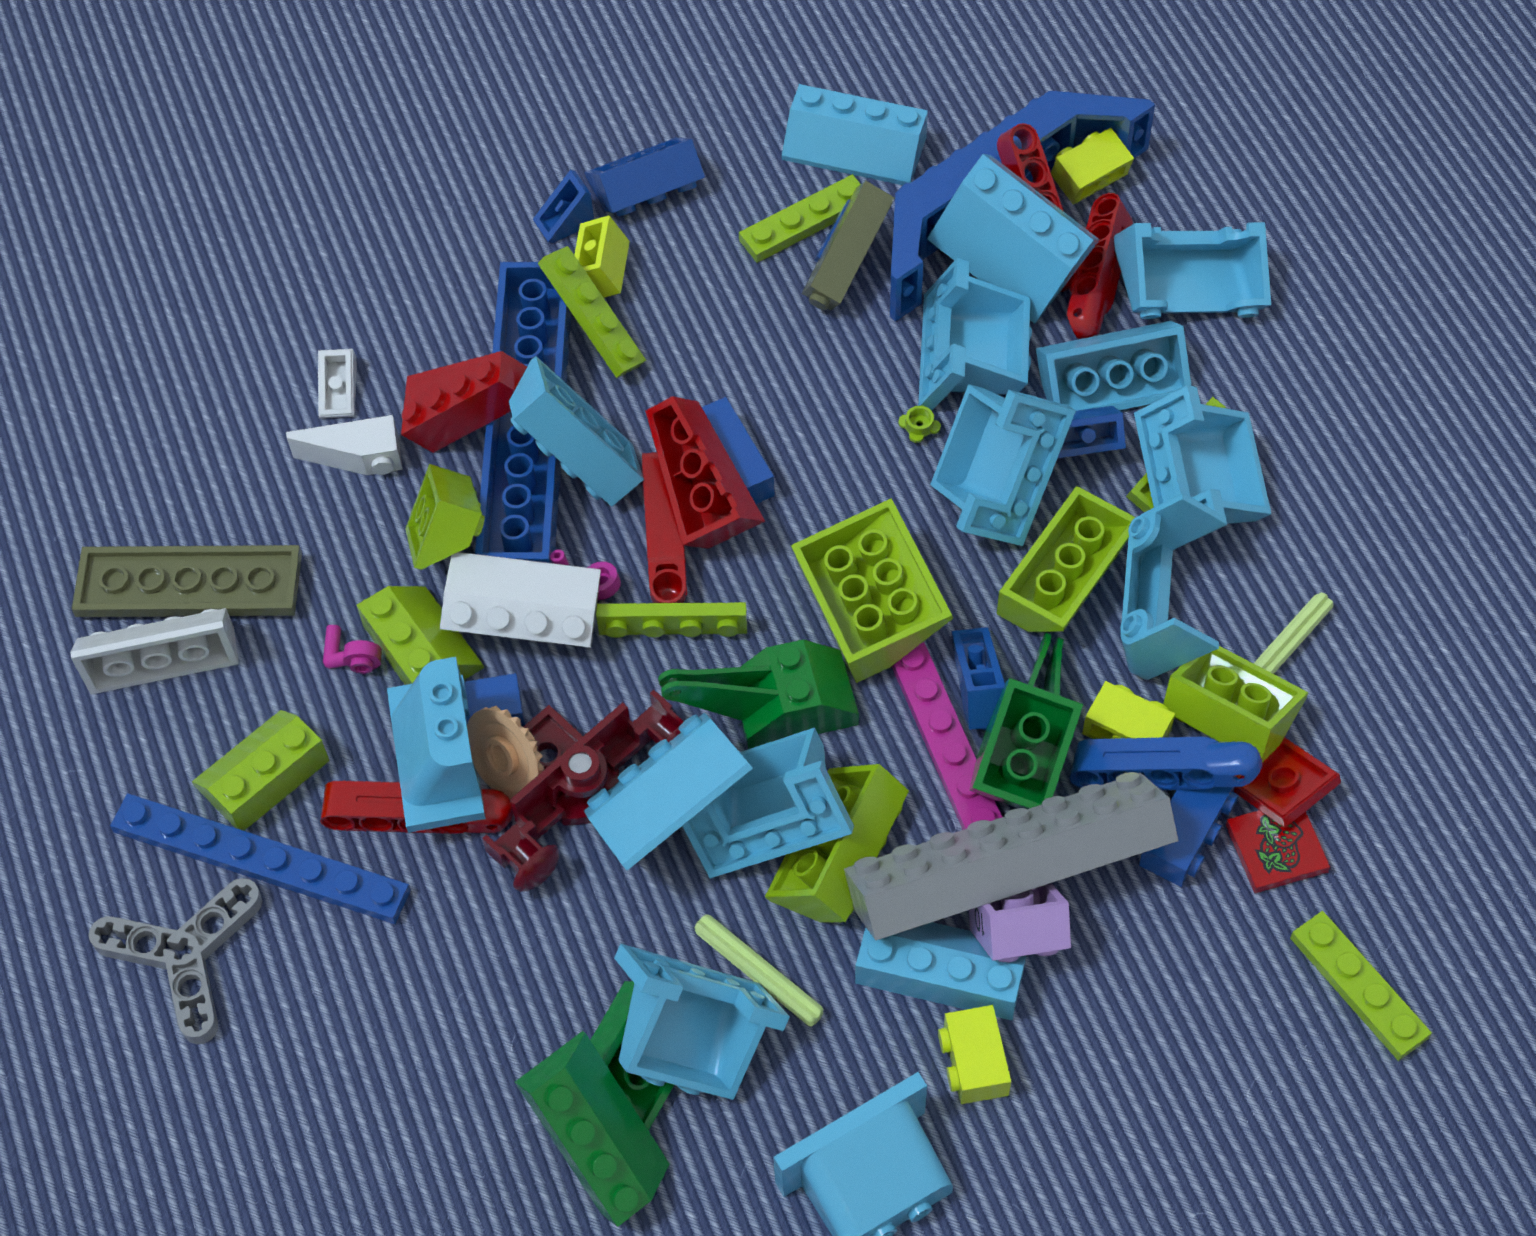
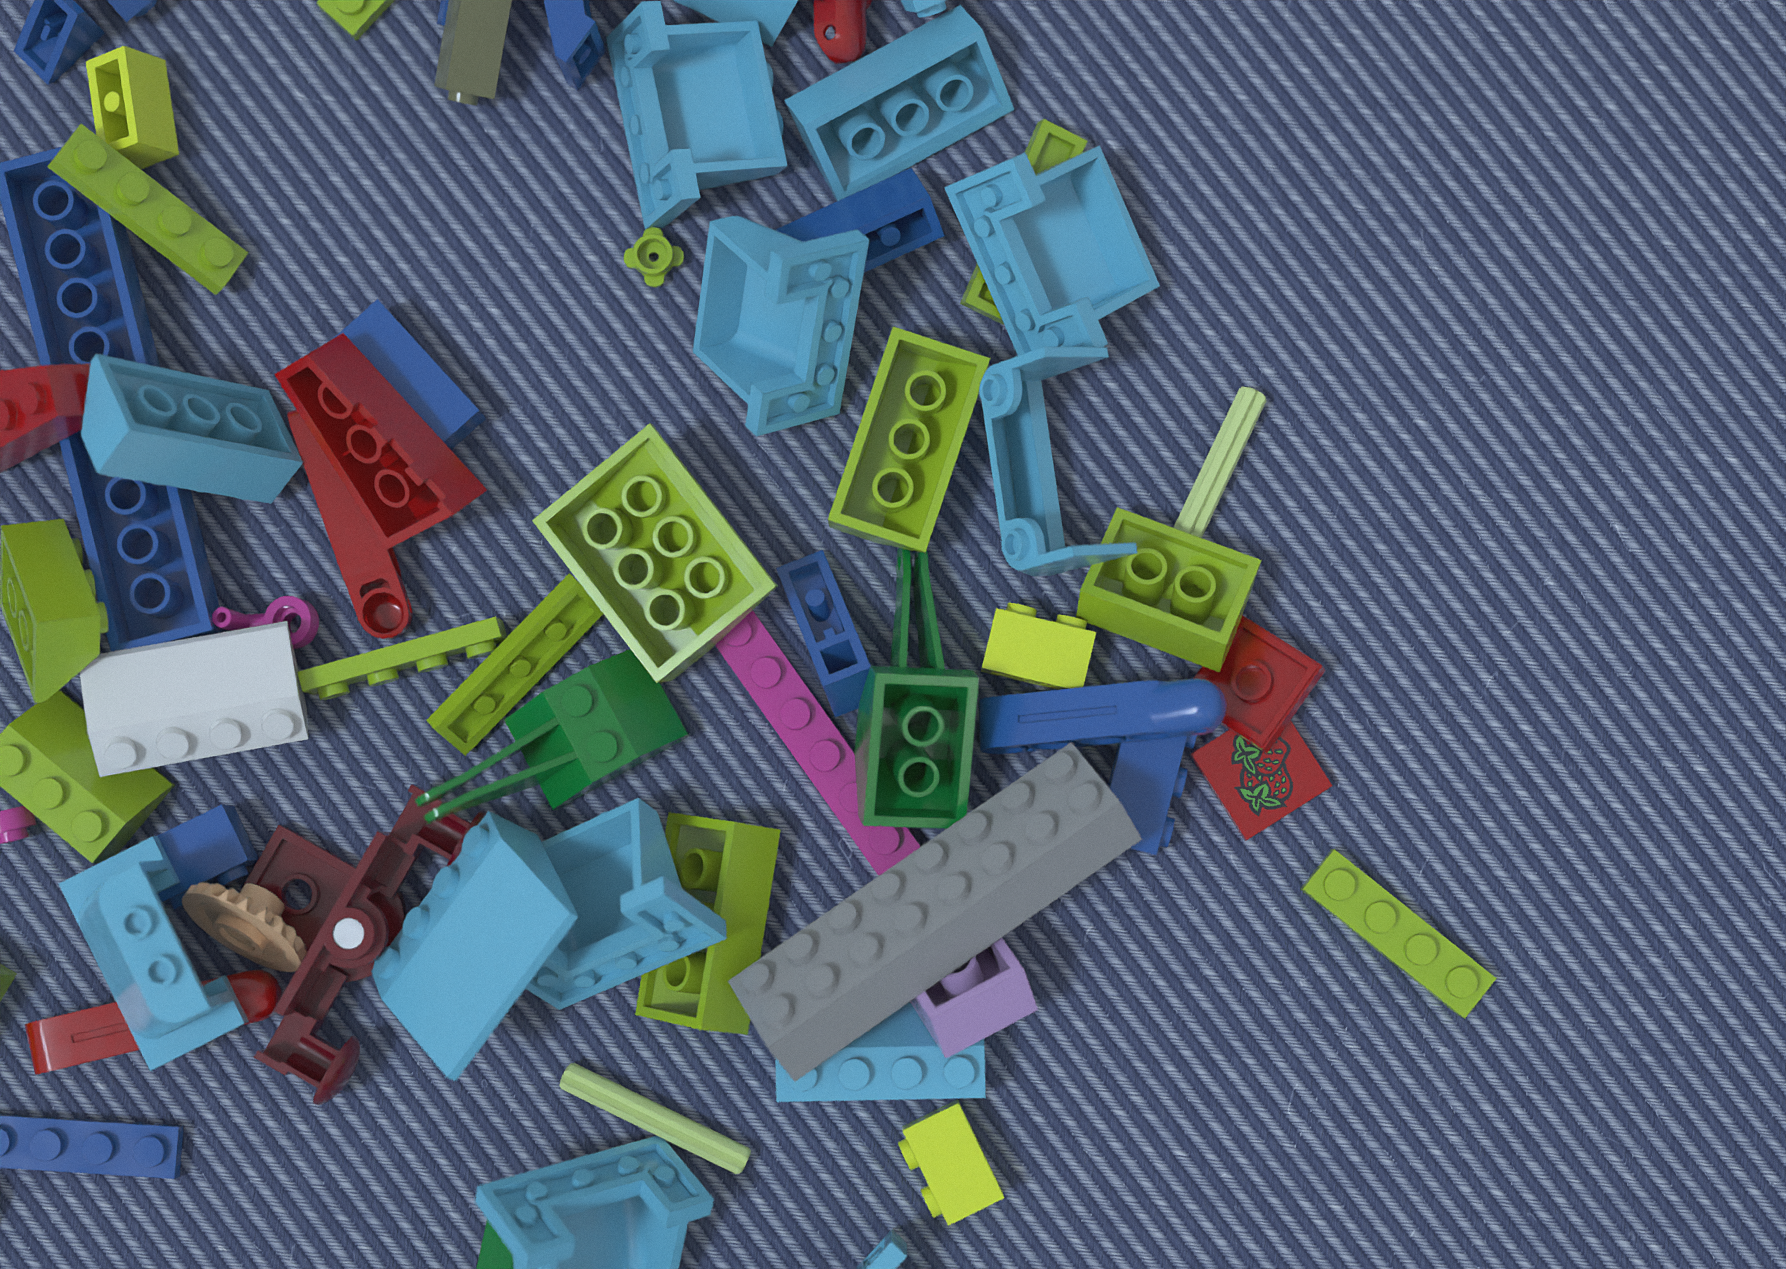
camera: 15 degrees left, 25 degrees up
(778, 626) = (515, 665): none -> lime plate

